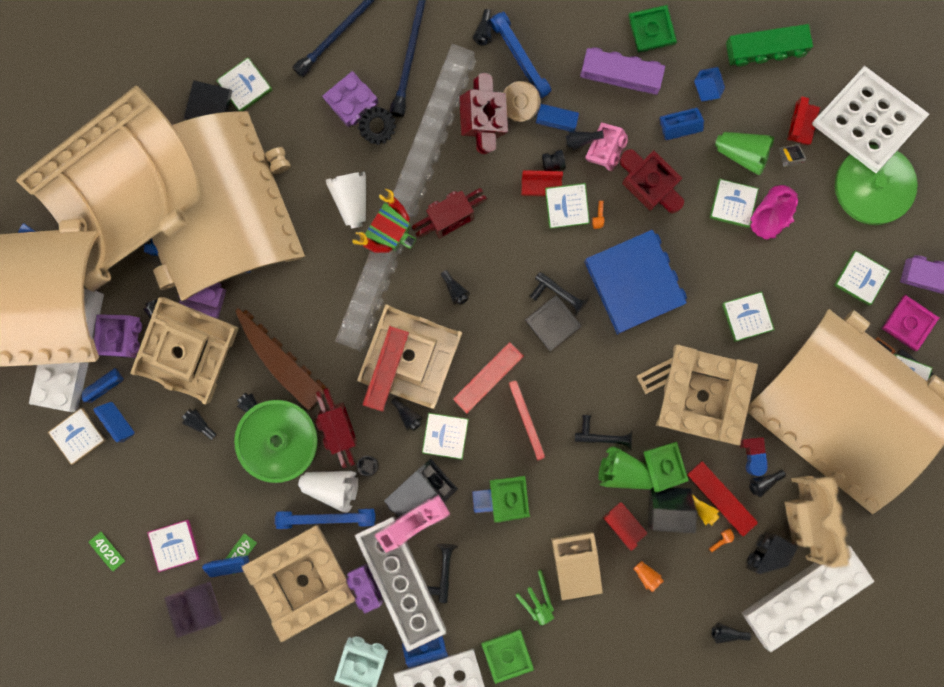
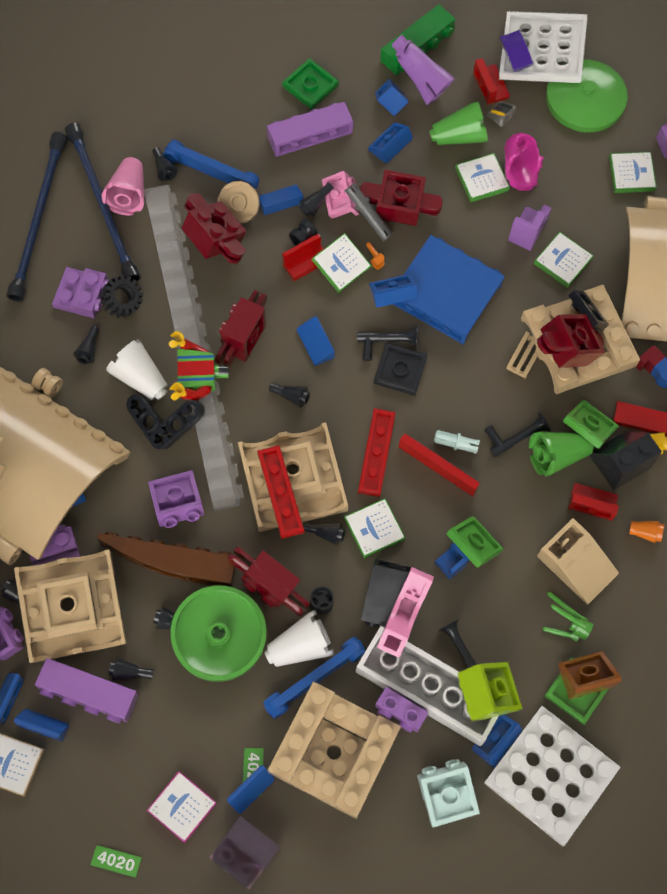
camera: 40 degrees left, 15 degrees down
(159, 419) = (86, 690): none -> medium lavender brick
(313, 317) = (176, 499): none -> medium lavender plate
(323, 152) = (86, 350): none -> black cone
(338, 252) = (164, 427): none -> black beam
(435, 620) = (489, 690): none -> lime slope
(440, 31) = (126, 188): none -> bright pink cone
(502, 258) = (316, 341): none -> blue slope
(520, 653) = (588, 675): none -> dark orange slope
(553, 410) = (456, 441): none -> light aqua axle
(588, 258) = (393, 290): none -> blue slope
(617, 176) = (368, 211): none -> dark grey pin
(691, 398) = (571, 341): none -> dark red brick
(727, 379) = (584, 305): none -> black plate
(740, 270) = (528, 227): none -> medium lavender panel
(749, 82) = (426, 74): none -> medium lavender piece
(841, 110) = (516, 51): none -> dark purple slope

